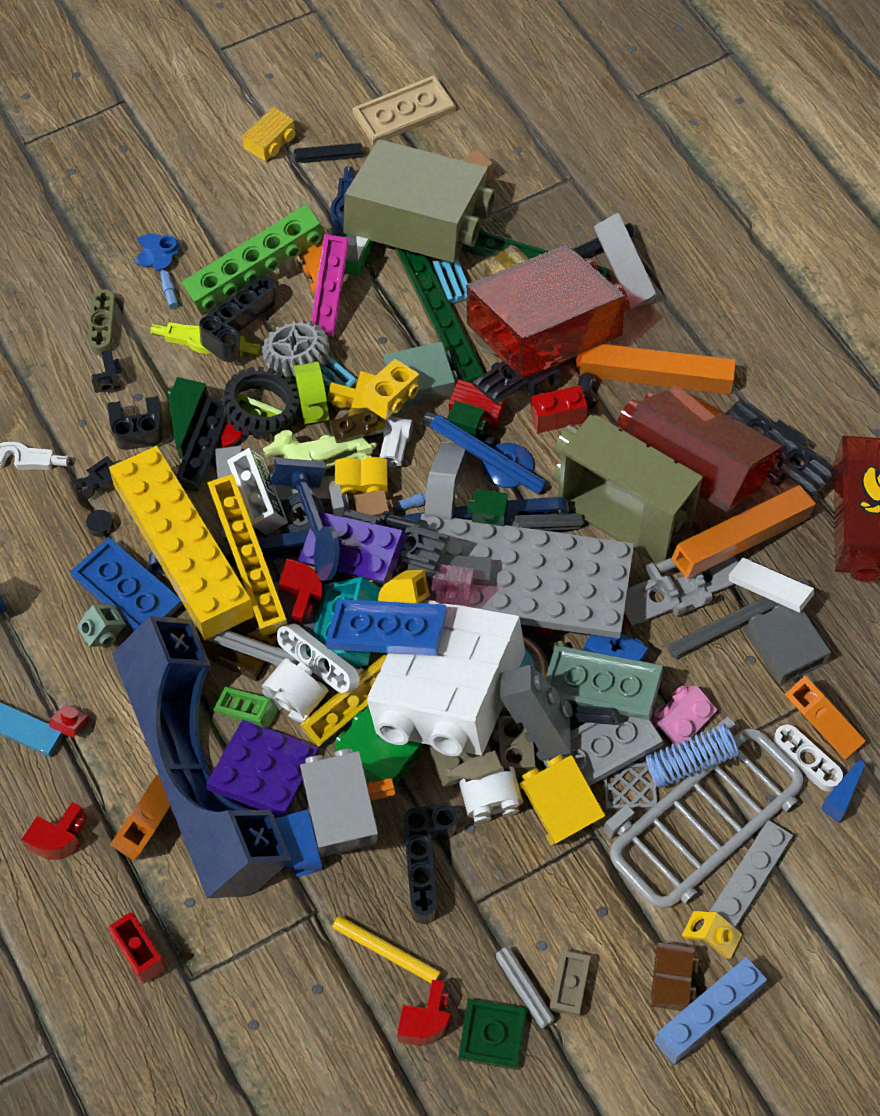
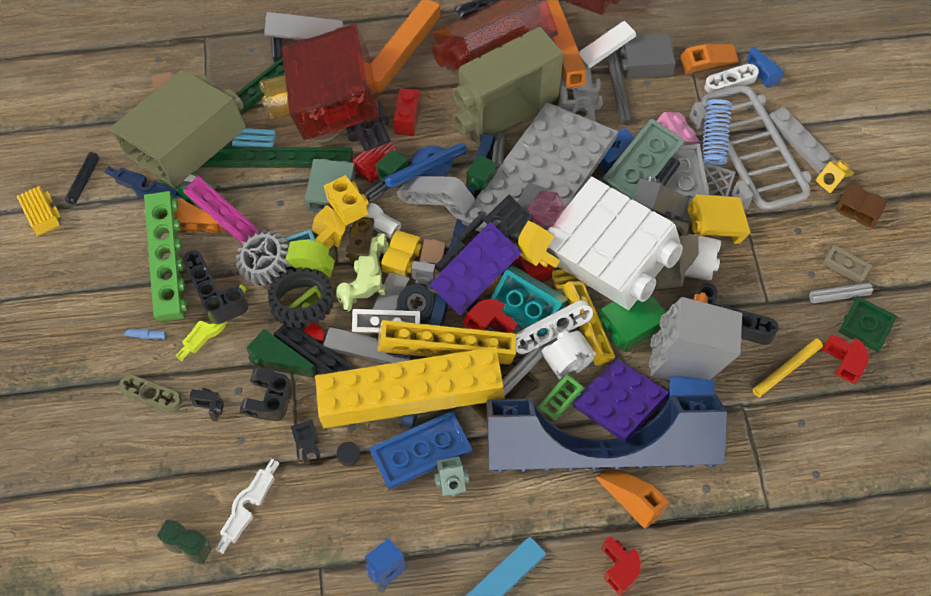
camera: 70 degrees left, 0 degrees up
(69, 720) = (523, 528): red plate -> none
(137, 947) = (741, 531): red brick -> none
(157, 251) = (103, 334): blue plate -> none
(303, 475) = (476, 280): dark blue piece -> none
(387, 627) = (564, 261): blue plate -> none
(404, 109) = (73, 115): tan tile -> none
(414, 501) = (435, 224): medium blue piece -> none
(586, 382) = (391, 91): black arm -> none
(709, 1009) = (902, 209): medium blue arch -> none

